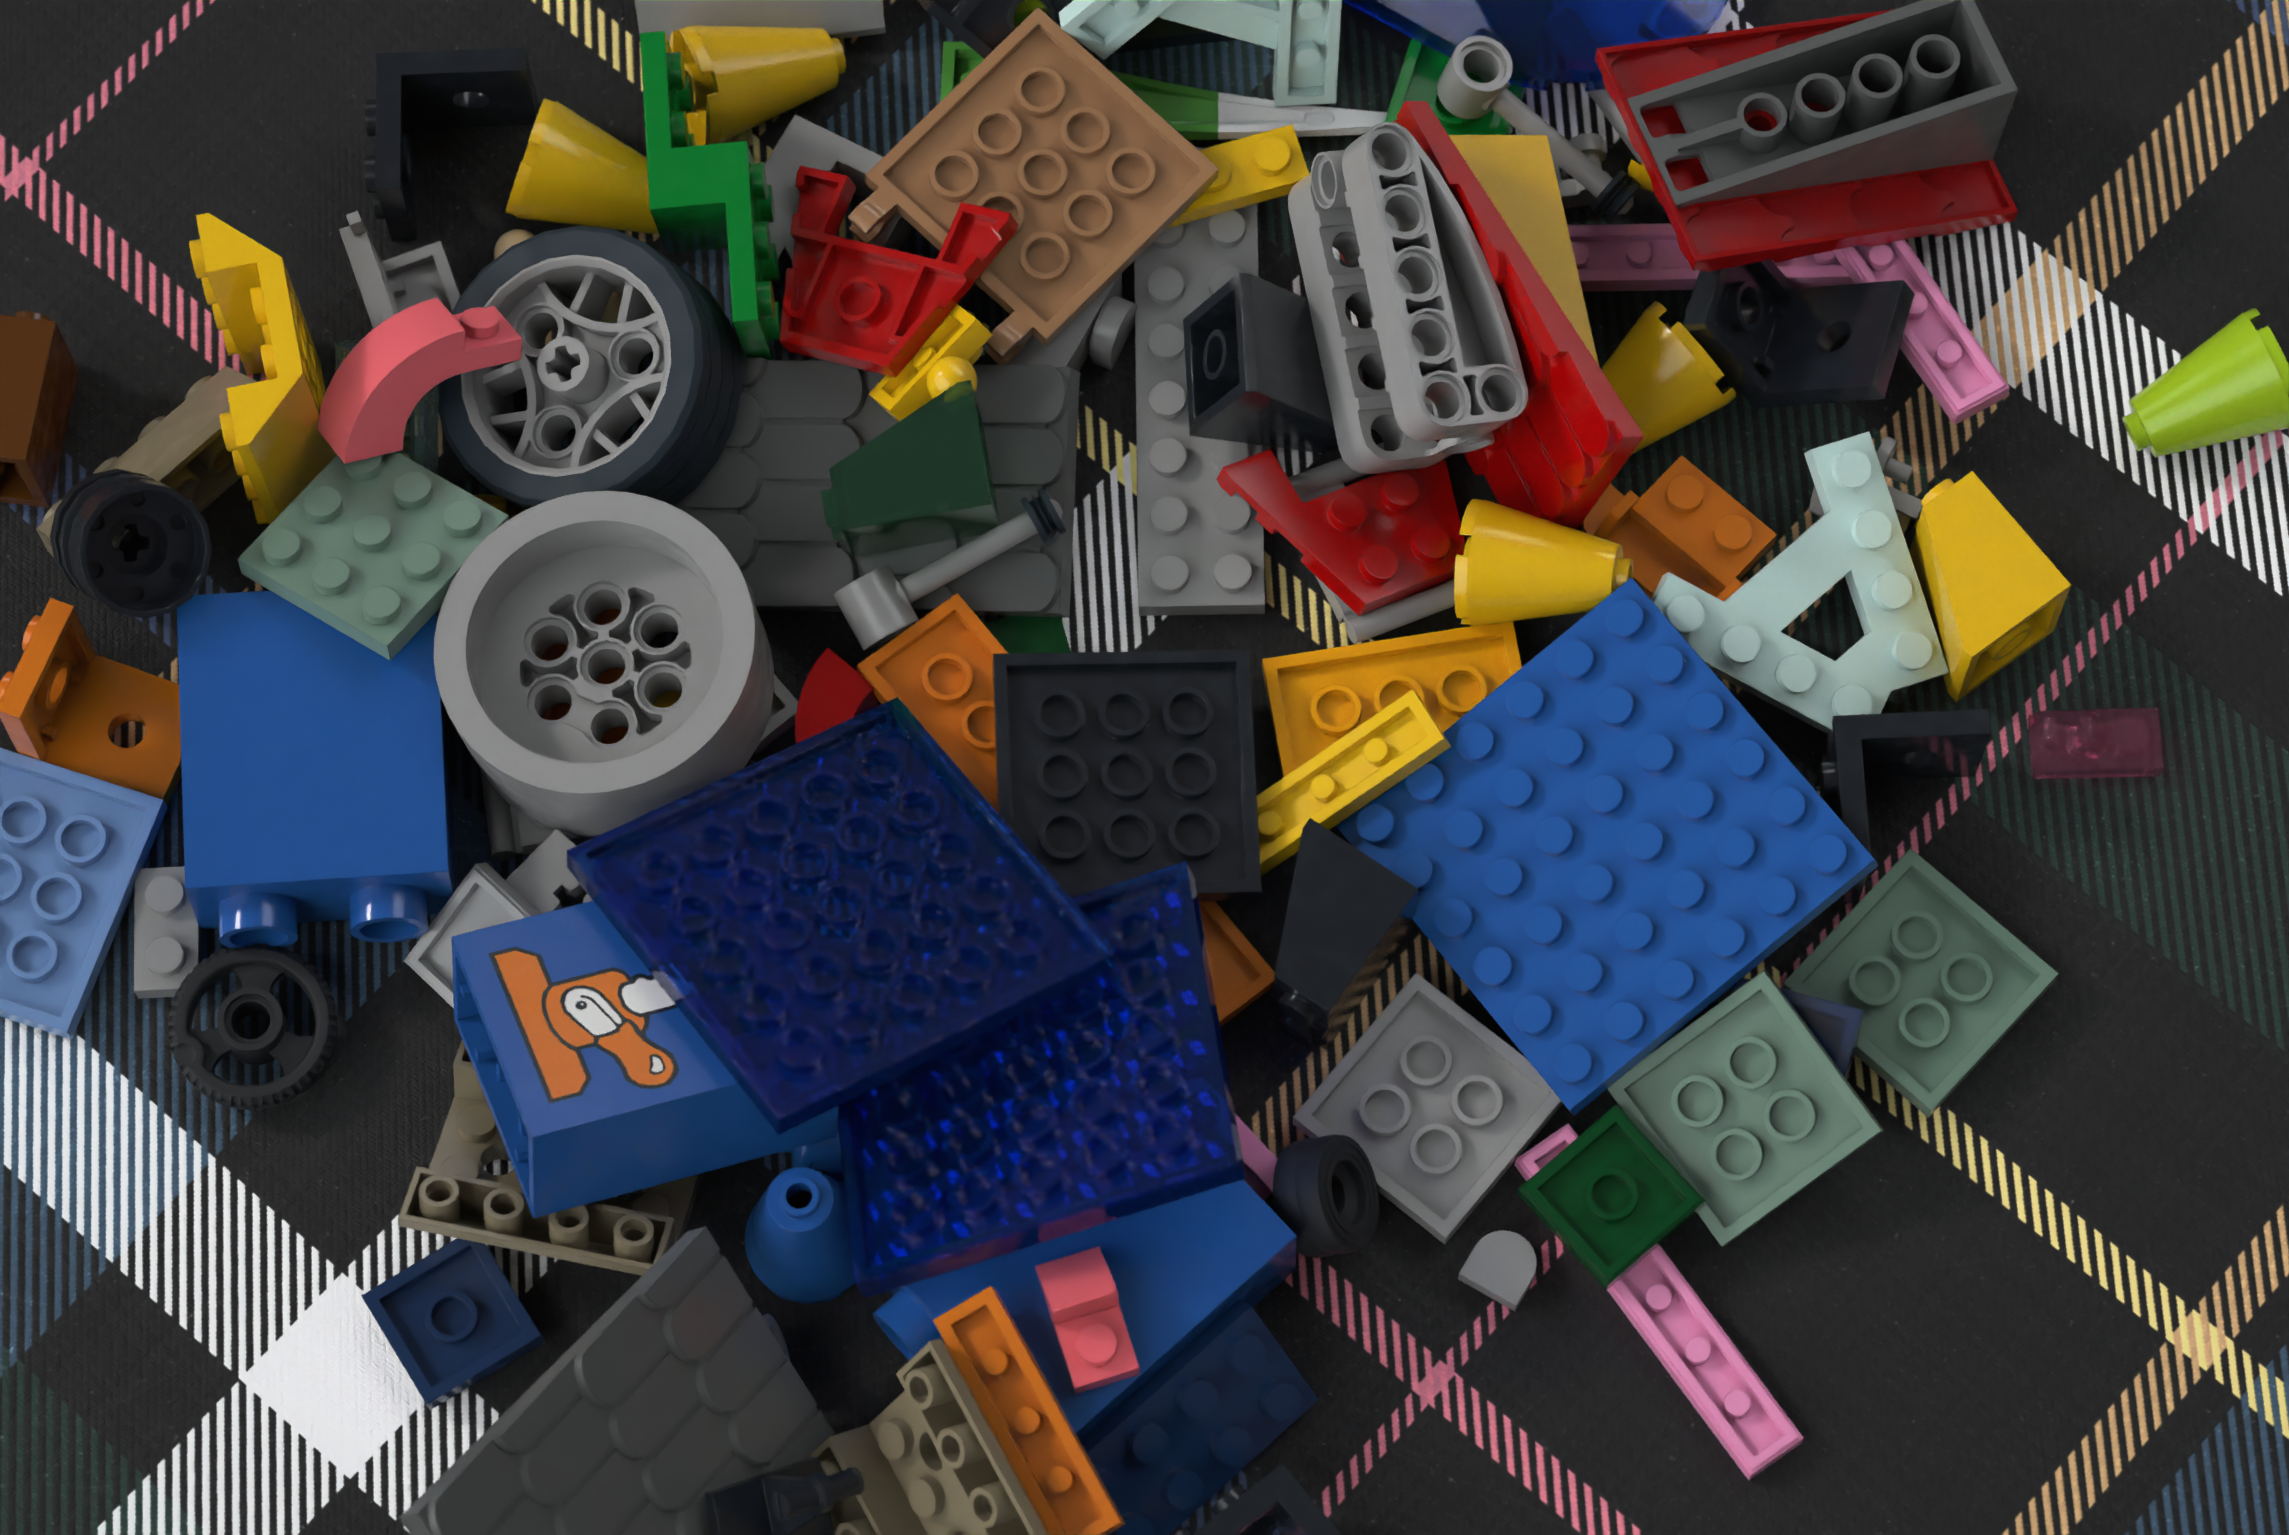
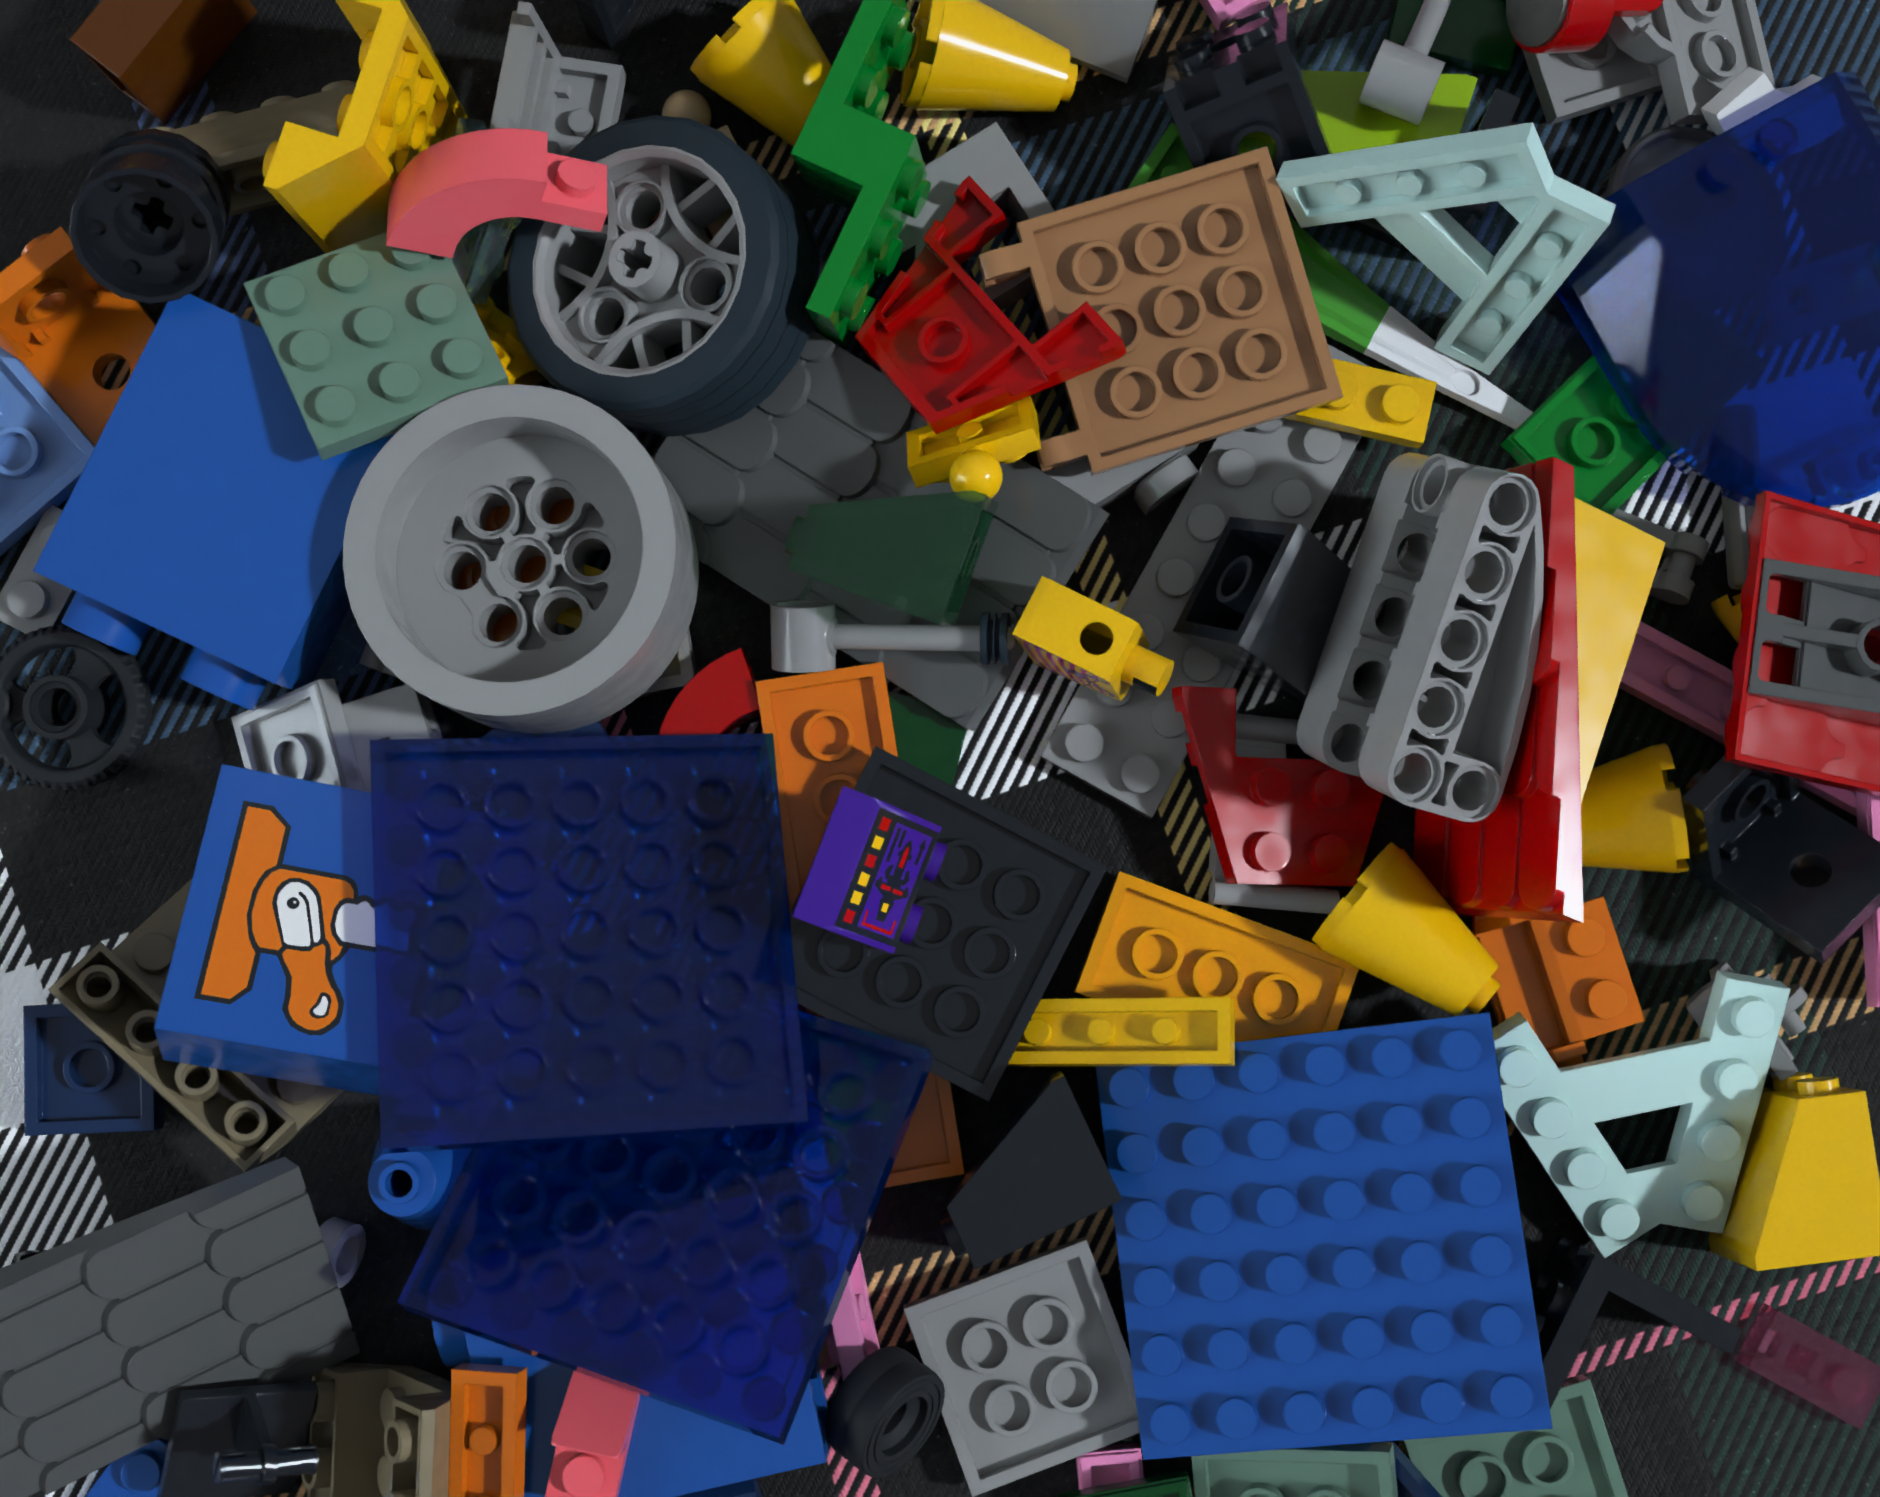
camera: 30 degrees right, 15 degrees up
(1049, 737) = (870, 871): none -> dark purple piece
(1124, 479) = (1071, 632): none -> yellow torso
(1474, 100) = (1653, 438): light grey piece -> none

